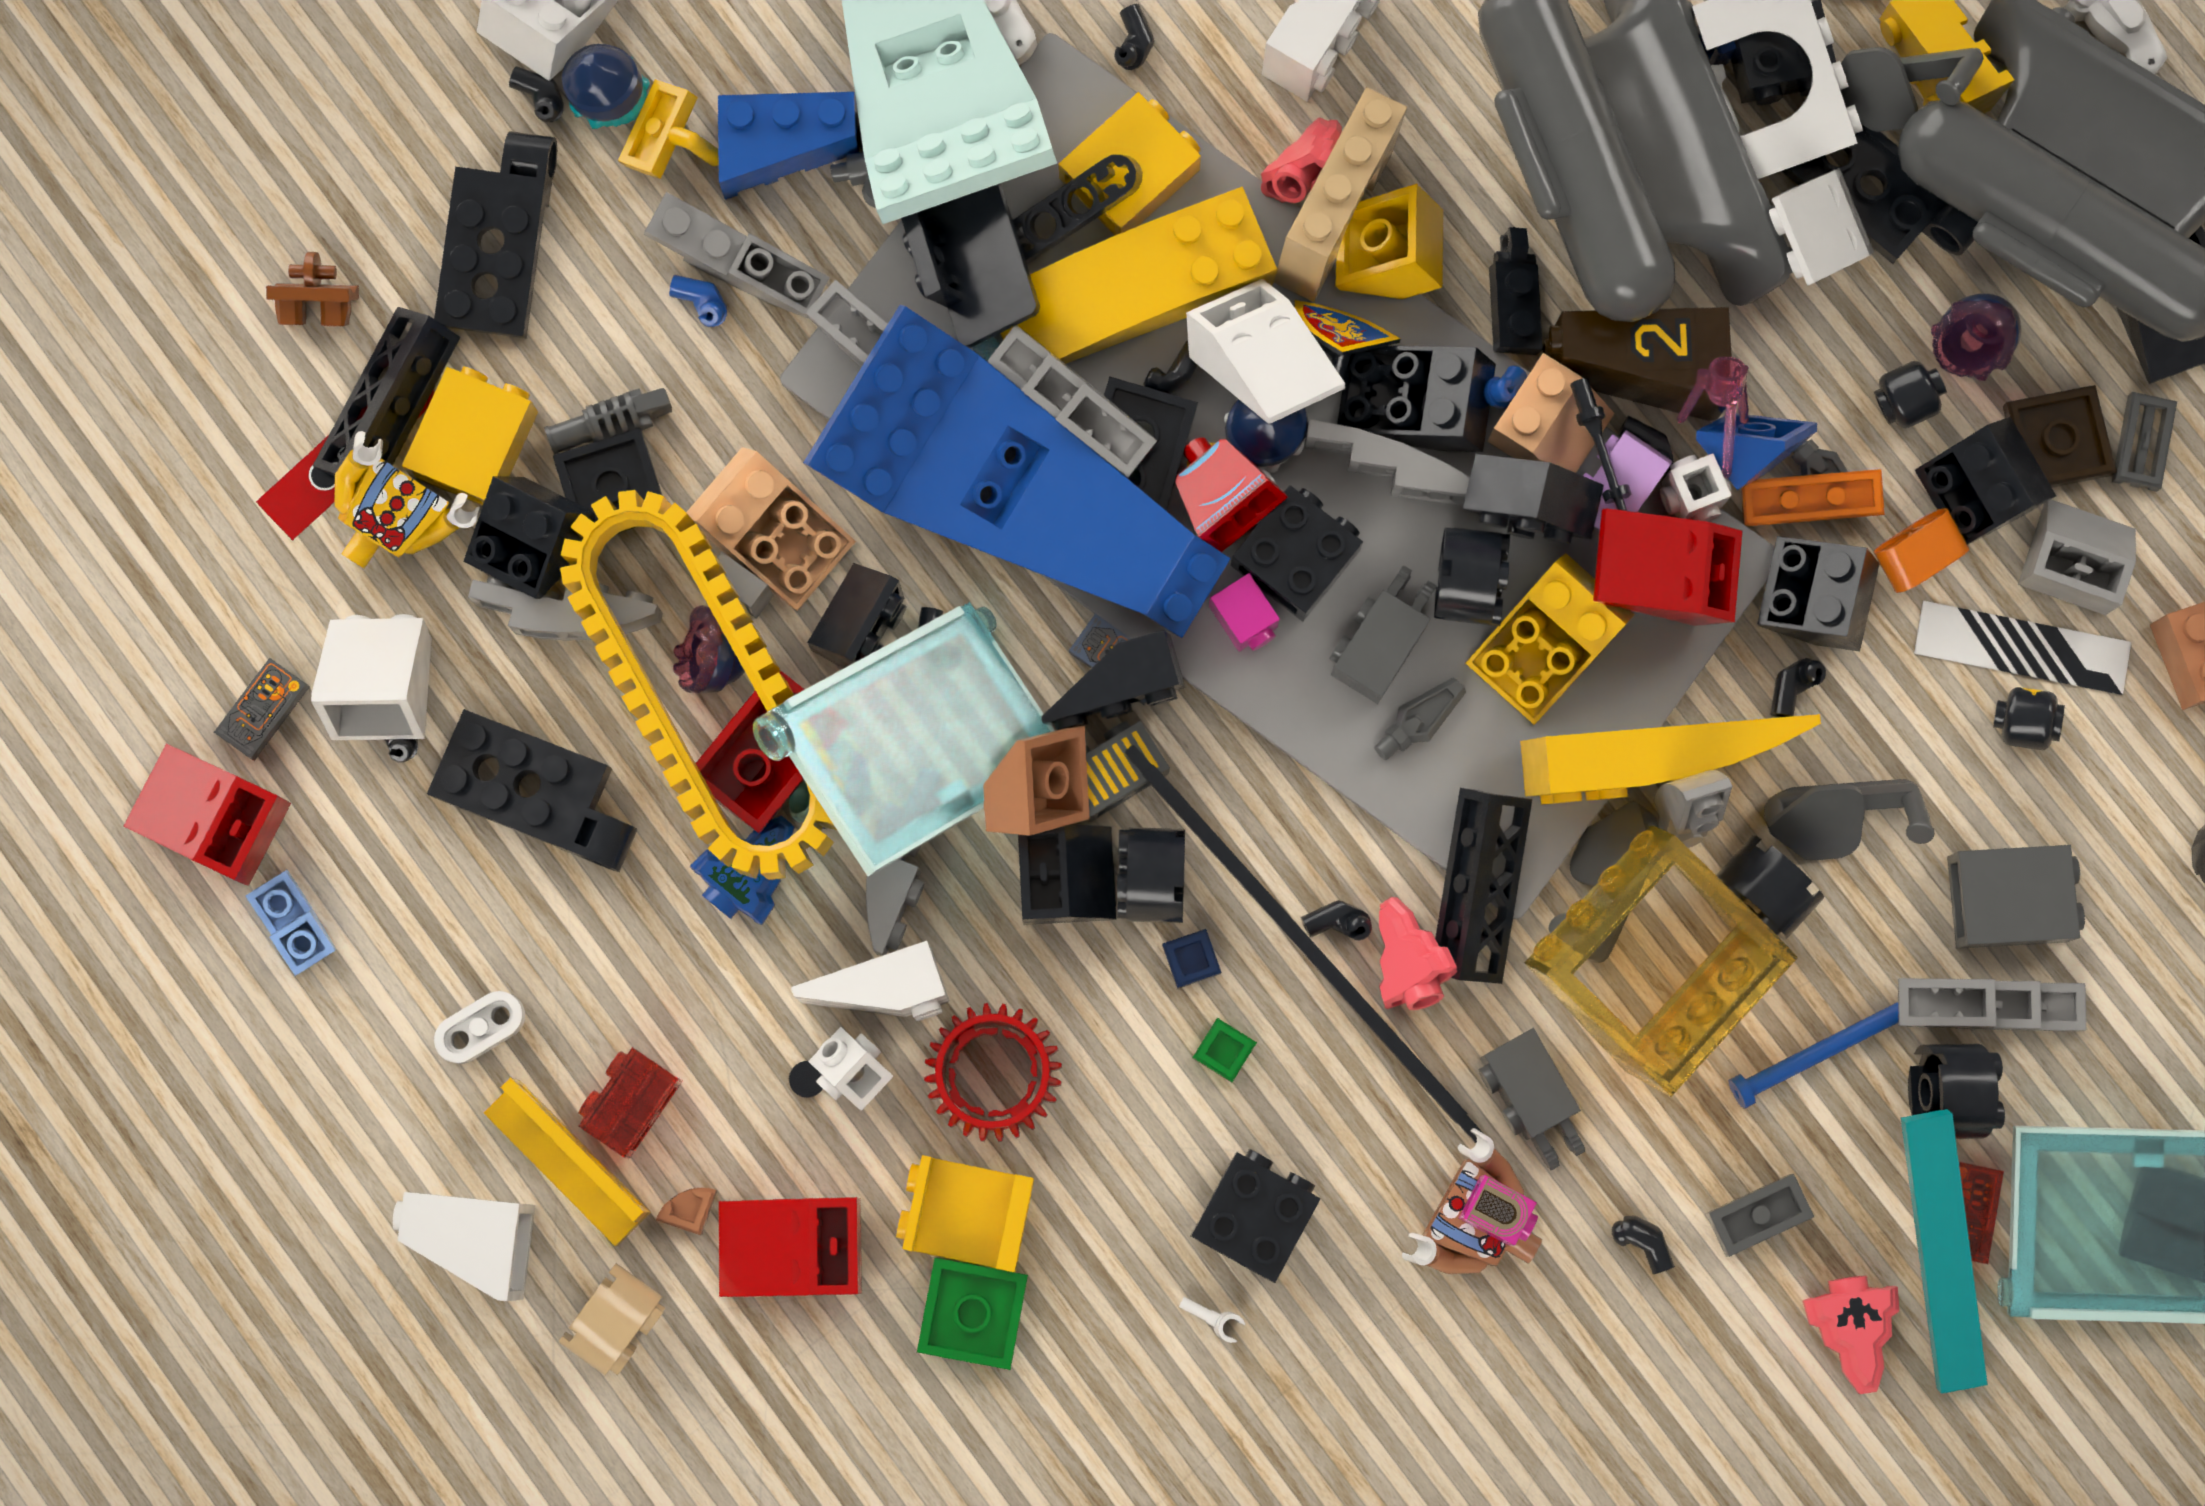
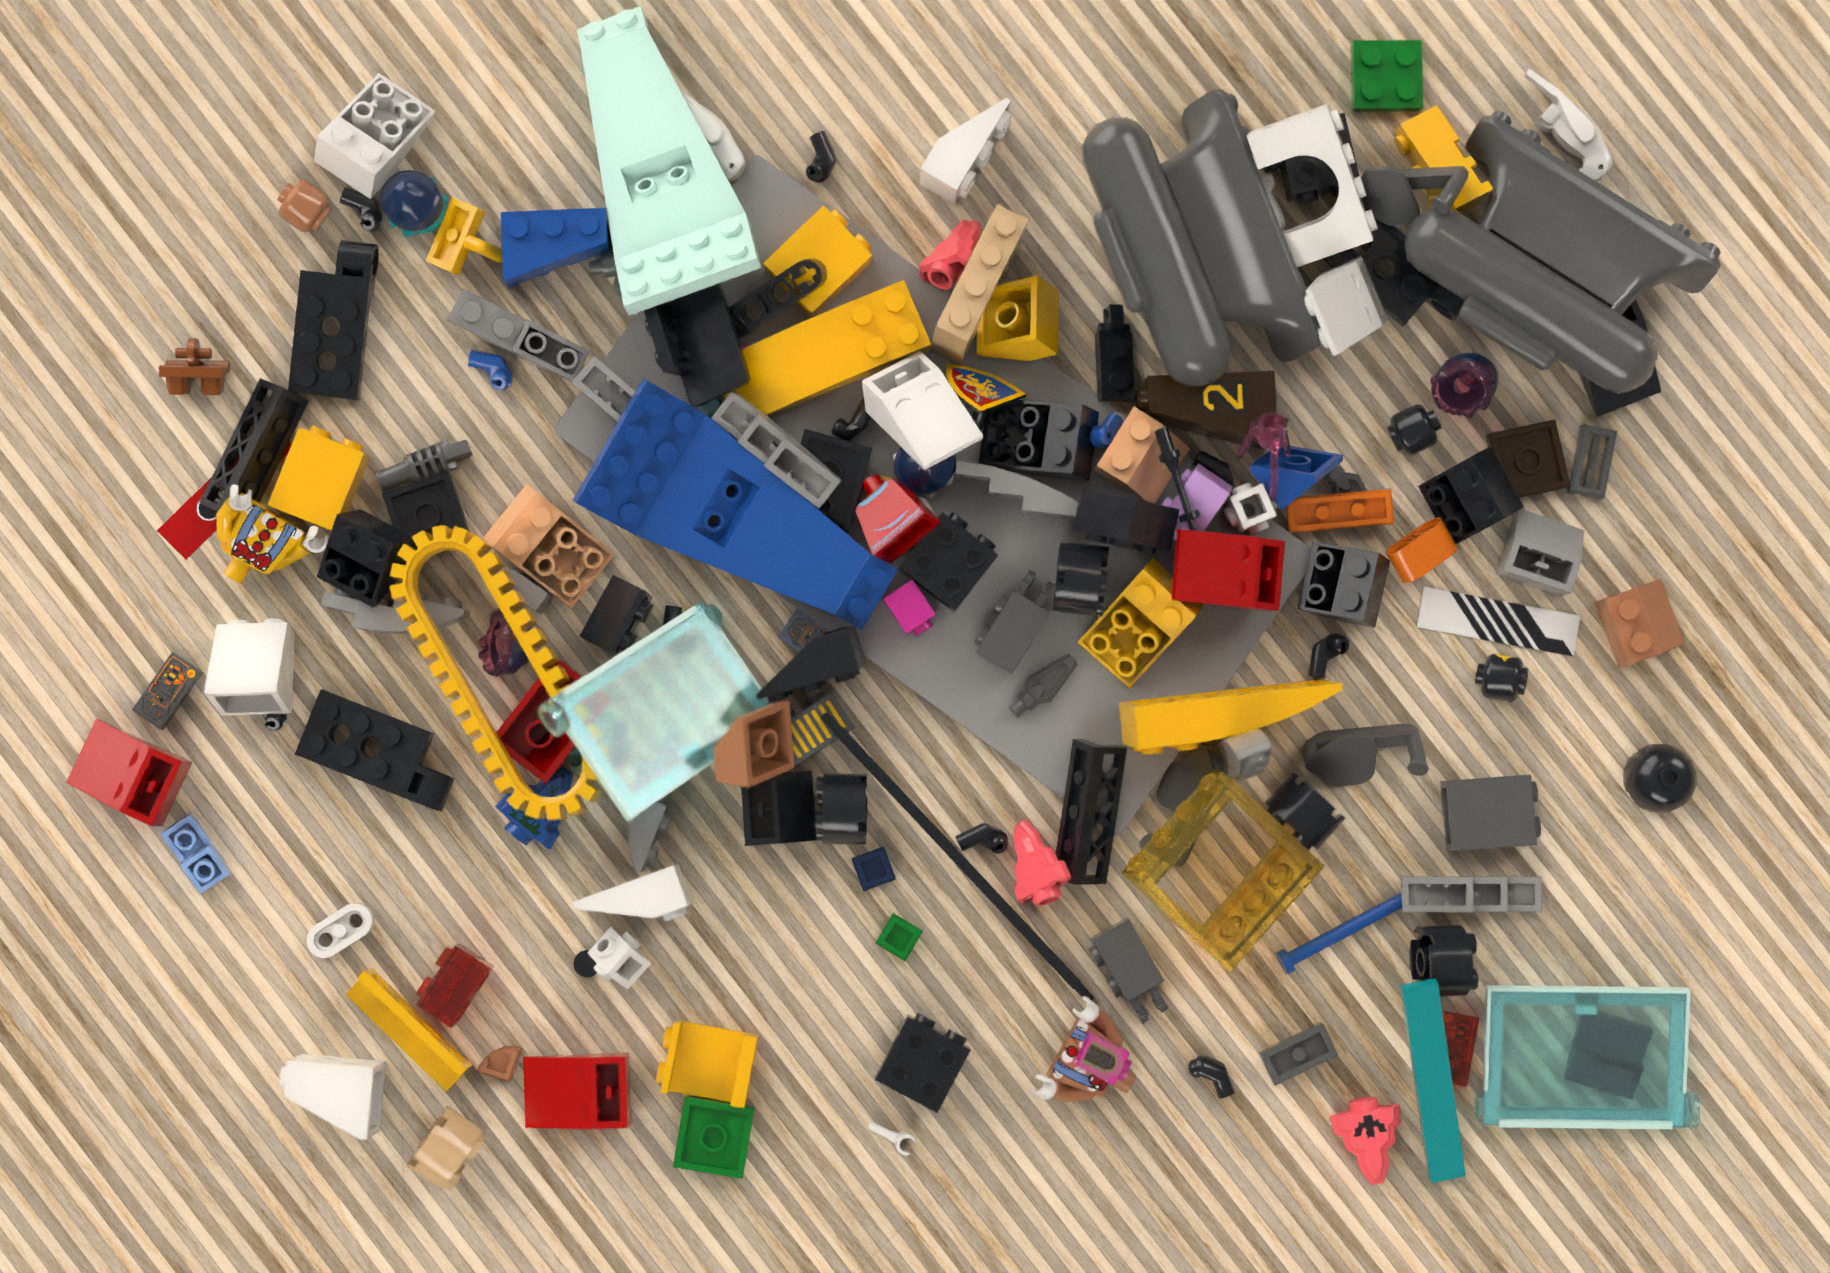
camera: 10 degrees left, 5 degrees up
(462, 88) = (303, 206): none -> nougat head
(964, 1033) = (696, 980): red gear -> none

